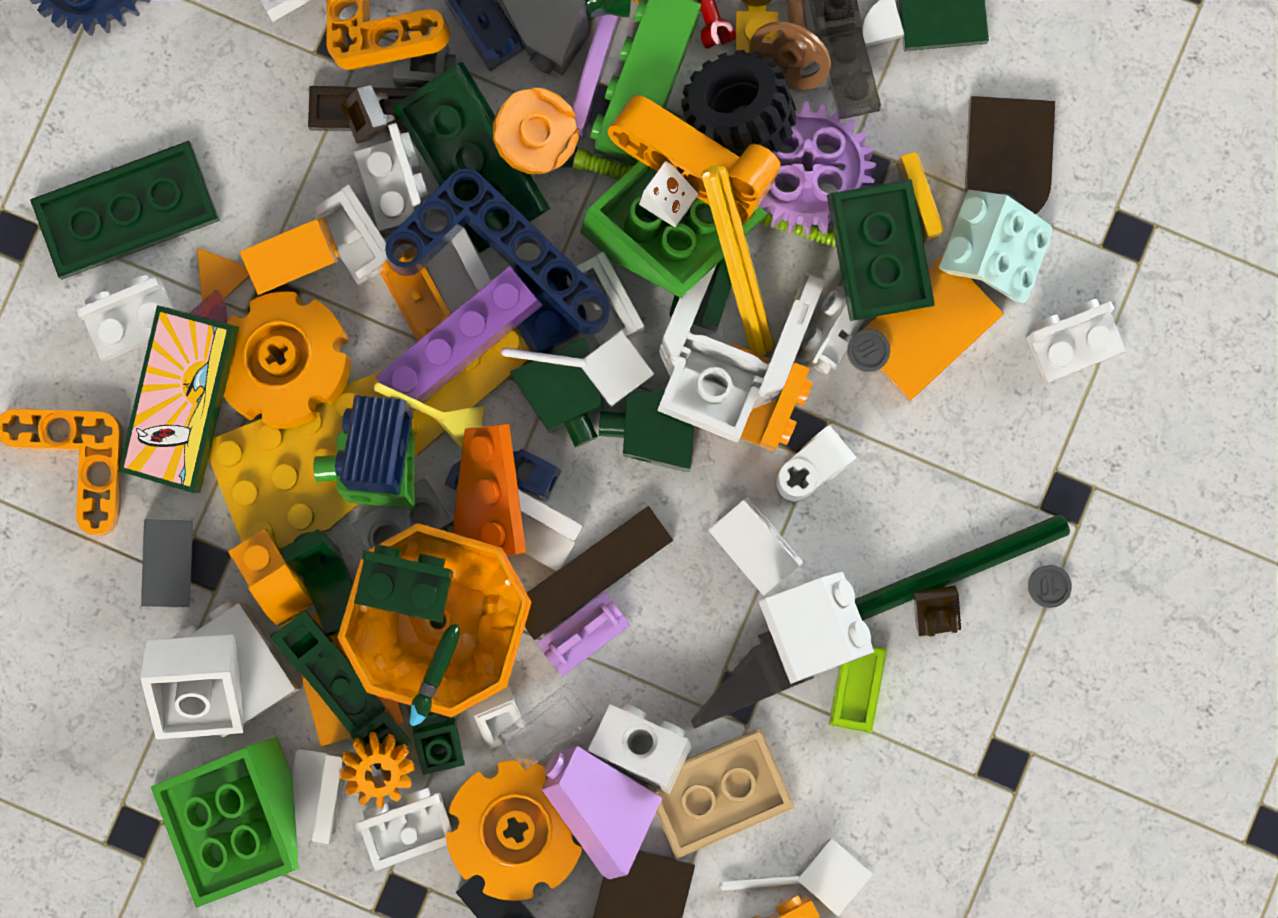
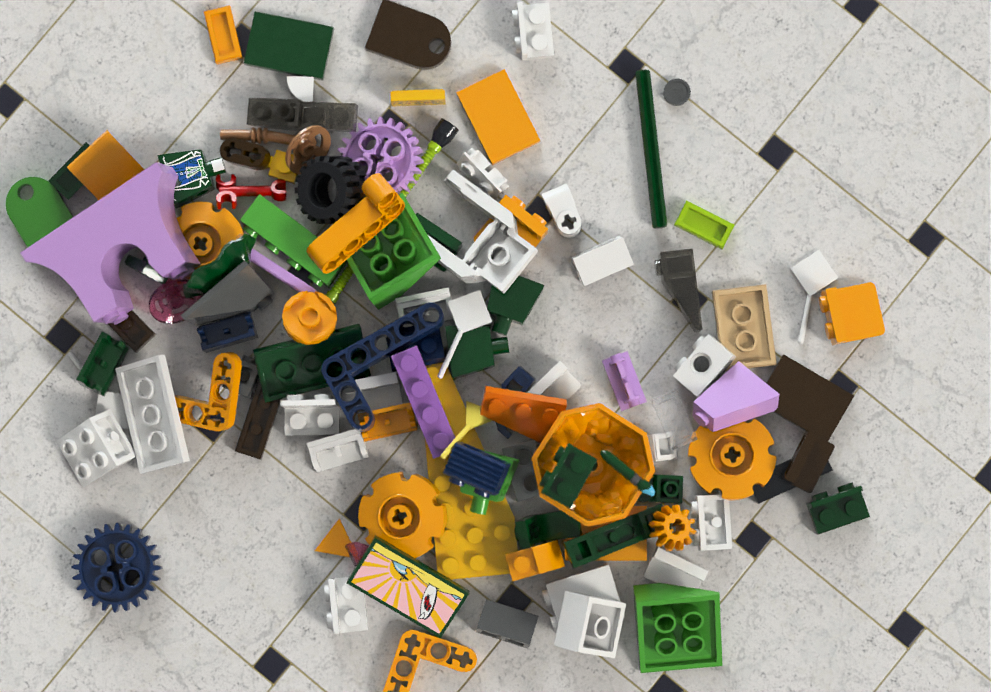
camera: 70 degrees left, 0 degrees up
(124, 210) = (277, 589): dark green tile -> none
(290, 255) = (339, 492): light orange hinge -> none
(365, 114) = (265, 420): dark brown tile -> none
(595, 571) = (587, 360): dark brown tile -> none
(668, 195) = (375, 247): white slope -> none
(737, 258) = (426, 217): yellow axle -> none
(816, 626) = (663, 236): white slope -> none
(868, 350) = (502, 157): dark grey piece -> none
(880, 250) = (445, 130): dark green tile -> none
(937, 611) = (673, 163): dark brown tile -> none
(997, 244) = (461, 60): light aqua bracket -> none

